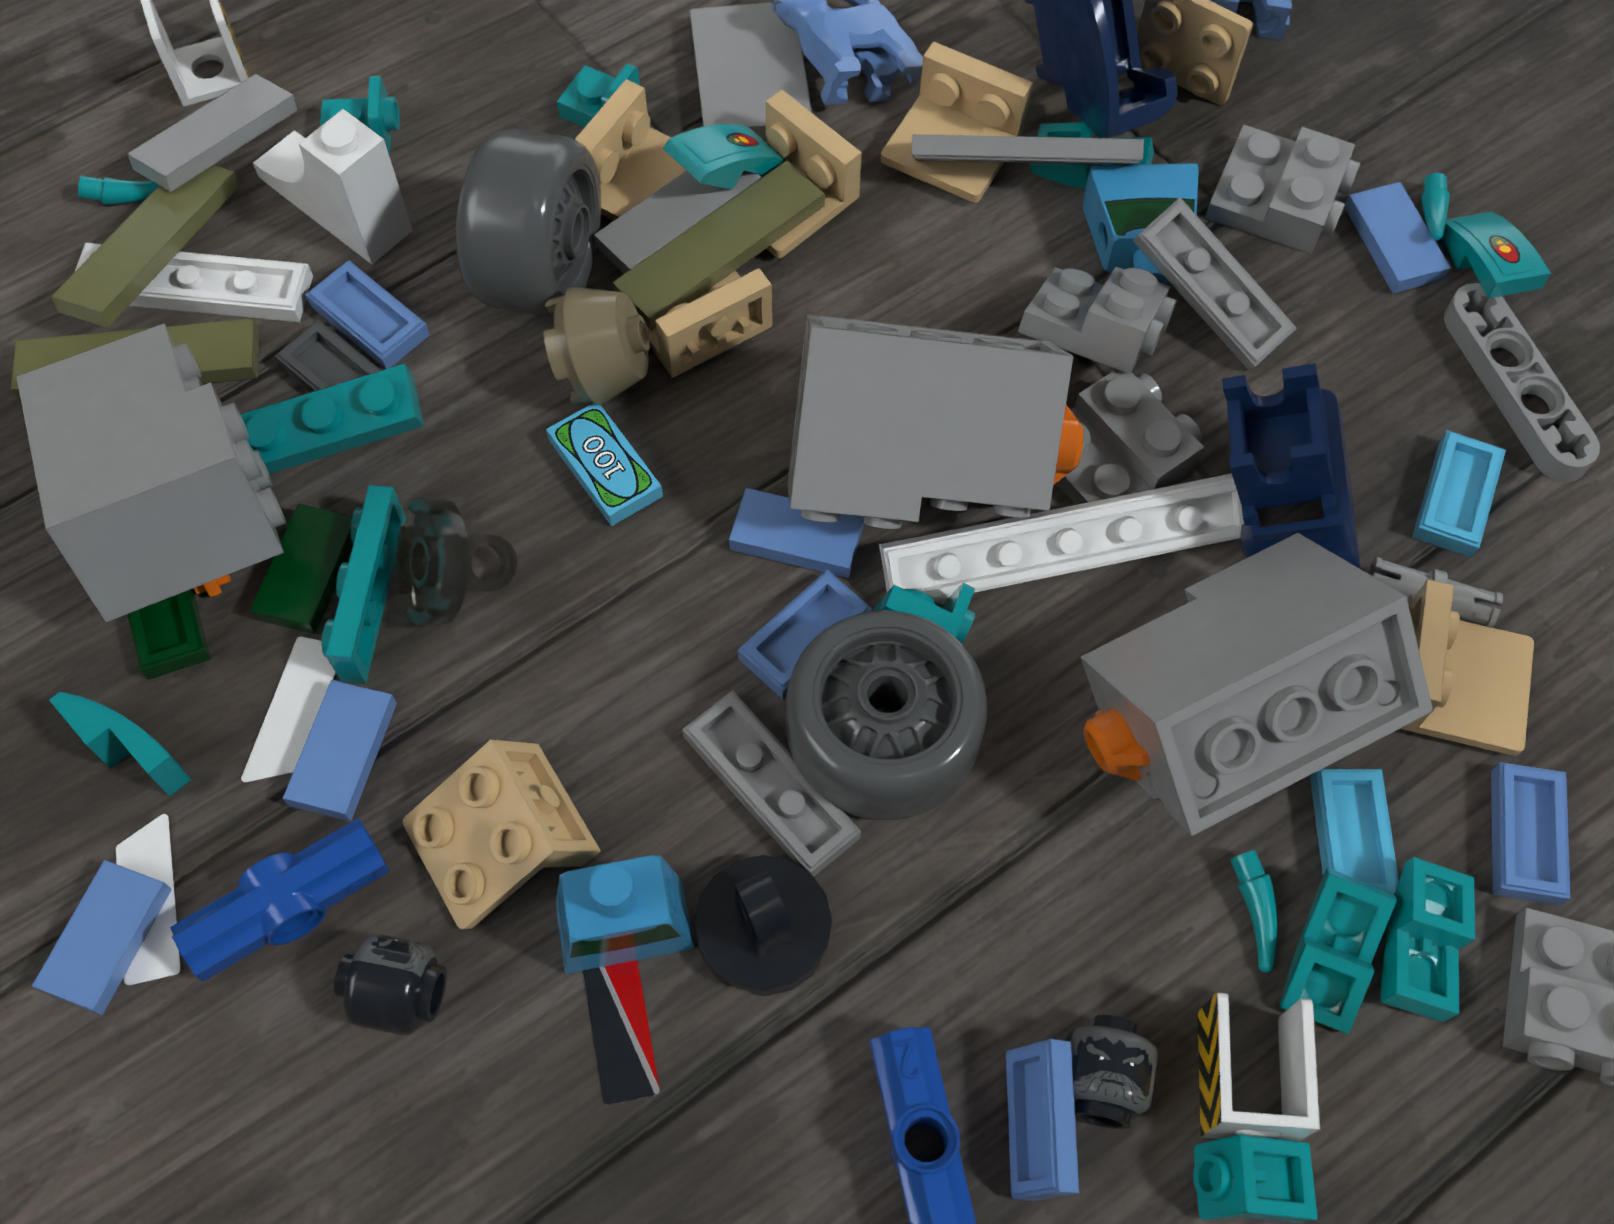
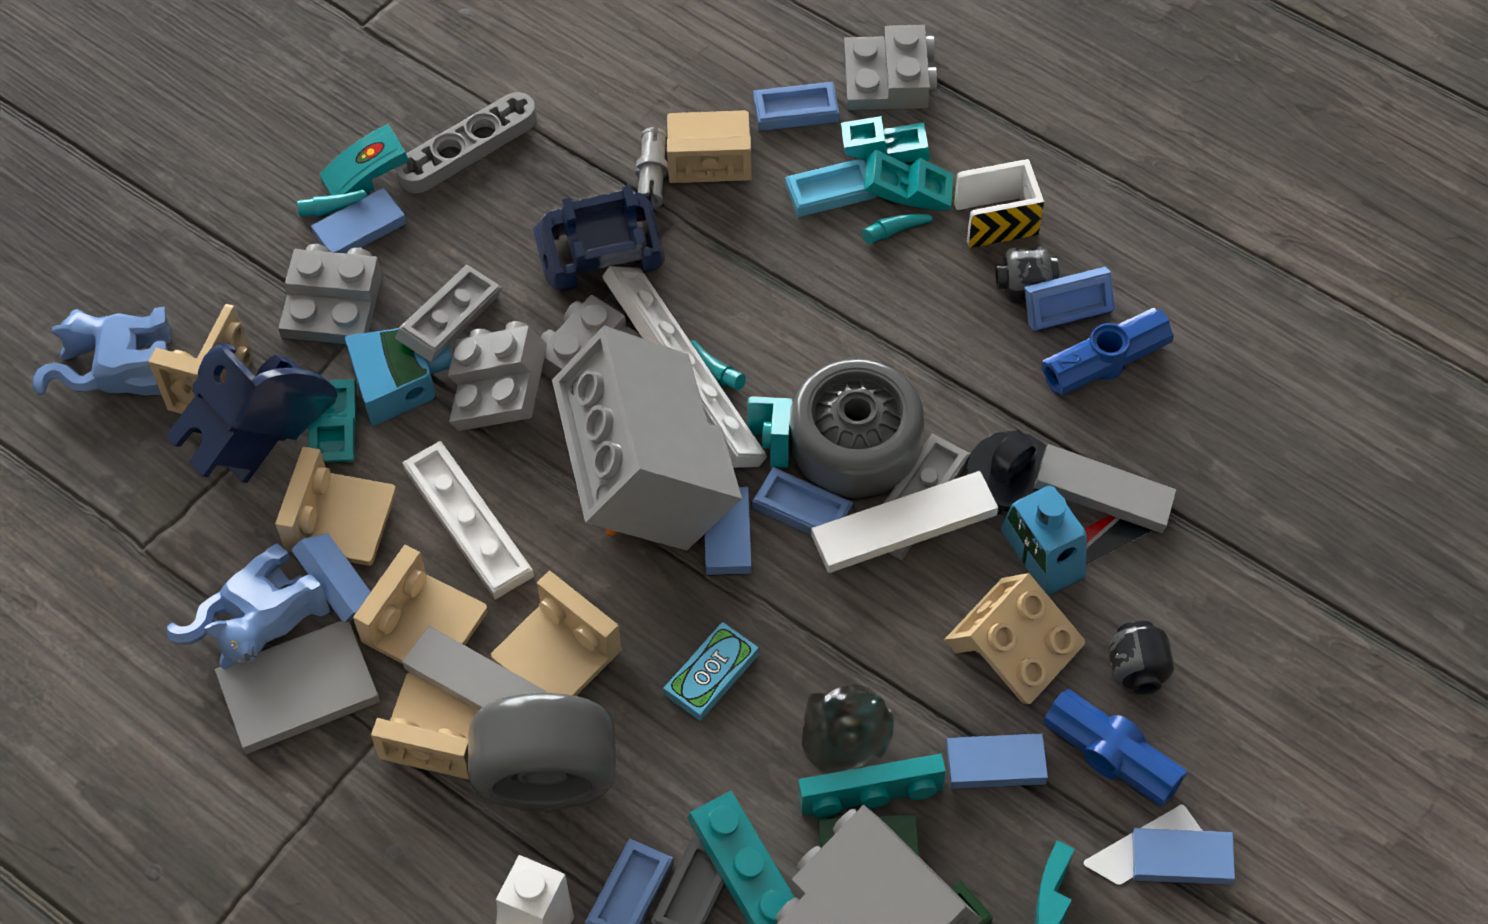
camera: 105 degrees left, 5 degrees down
(291, 712) = (975, 811): white sticker -> none
(590, 92) = (360, 785): teal bracket -> none
(596, 343) = (629, 680): dark tan cone -> none
(680, 1044) = (1106, 488): none -> light grey tile
(719, 741) = (904, 521): none -> white tile
(721, 242) = (498, 638): olive tile -> none
(722, 153) = (423, 646): teal slope -> none
(868, 103) = (331, 568): none -> medium blue tile
(911, 264) = (468, 520): none -> white tile
(1027, 149) = (360, 448): light grey tile -> none
(1054, 590) = (722, 373): none -> teal helmet
(1254, 1179) = (1062, 202): teal bracket -> none
(1255, 682) = (774, 224): light grey piece -> none
(1459, 494) = (566, 165): medium azure tile -> none

